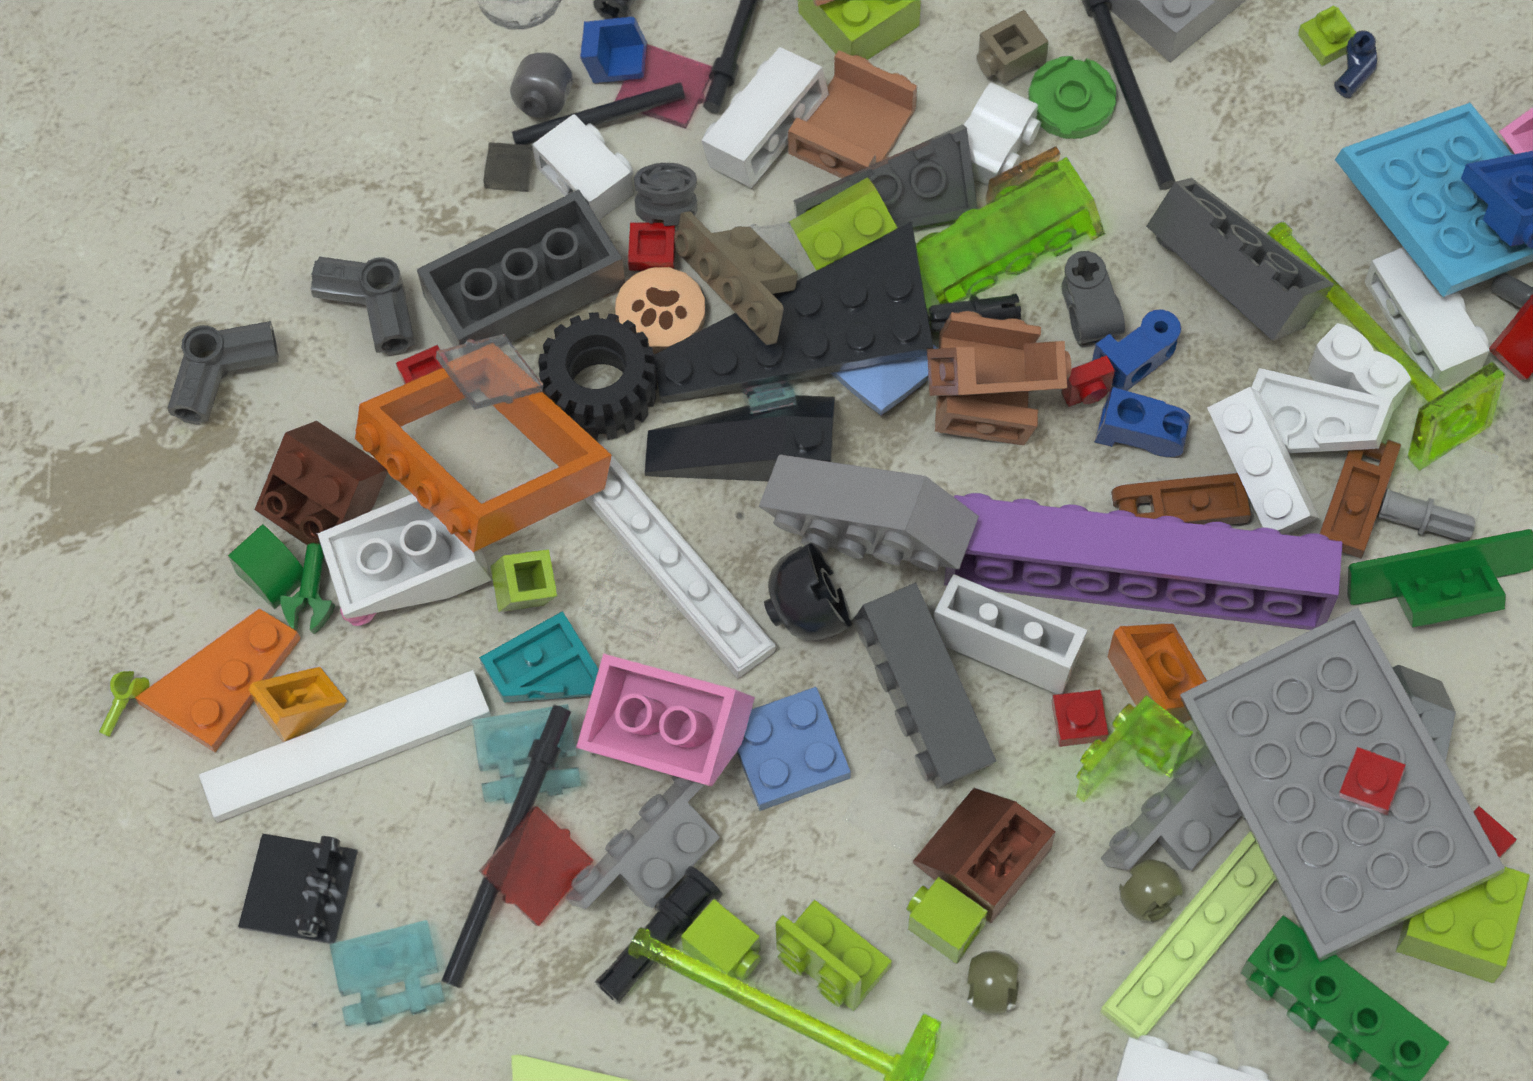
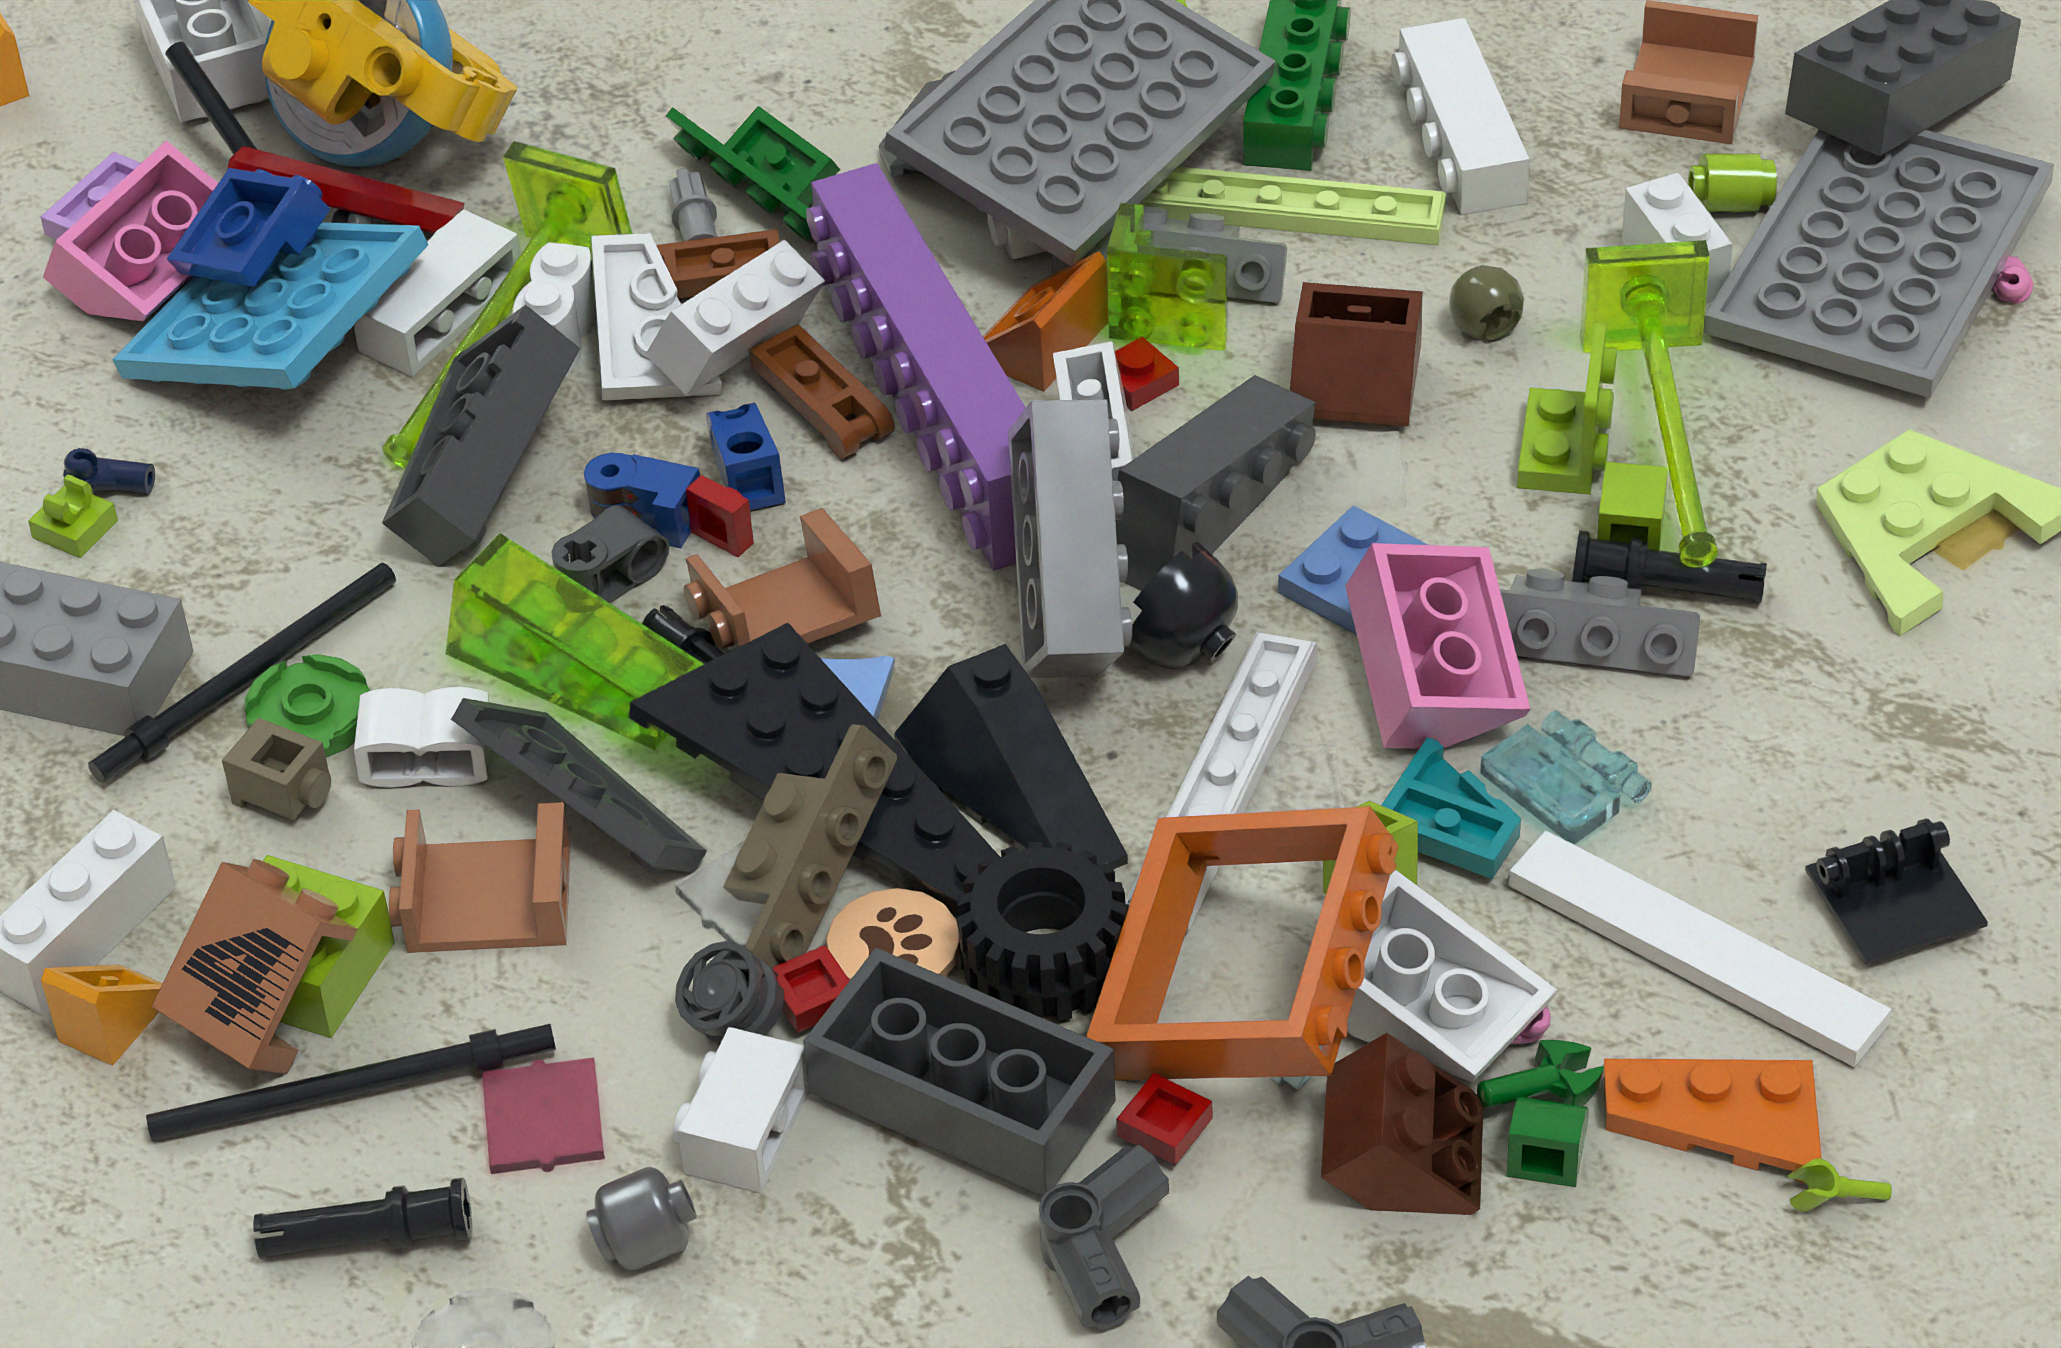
camera: 120 degrees left, 20 degrees down
(297, 701) = (1693, 1004): light orange slope -> none
(384, 960) = (1902, 784): clear light blue plate -> none
(489, 371) = (1135, 995): clear piece -> none
(508, 167) = (787, 1208): clear smoke tile -> none
(535, 865) = (1686, 692): clear red piece -> none
(543, 756) = (1567, 727): black bar -> none
(606, 112) = (643, 1145): black bar -> none
(613, 49) = (536, 1171): blue panel -> none
(759, 117) = (540, 958): white brick -> none
(769, 396) = (951, 766): clear light blue tile -> none
(843, 224) = (669, 781): lime brick -> none
(945, 919) = (1451, 361): lime brick -> none
(954, 370) = (787, 536): nougat panel -> none
(1020, 173) = (482, 652): clear orange piece -> none
(1150, 890) = (1295, 226): olive piece -> none
(1372, 780) = (1072, 61): red plate -> none

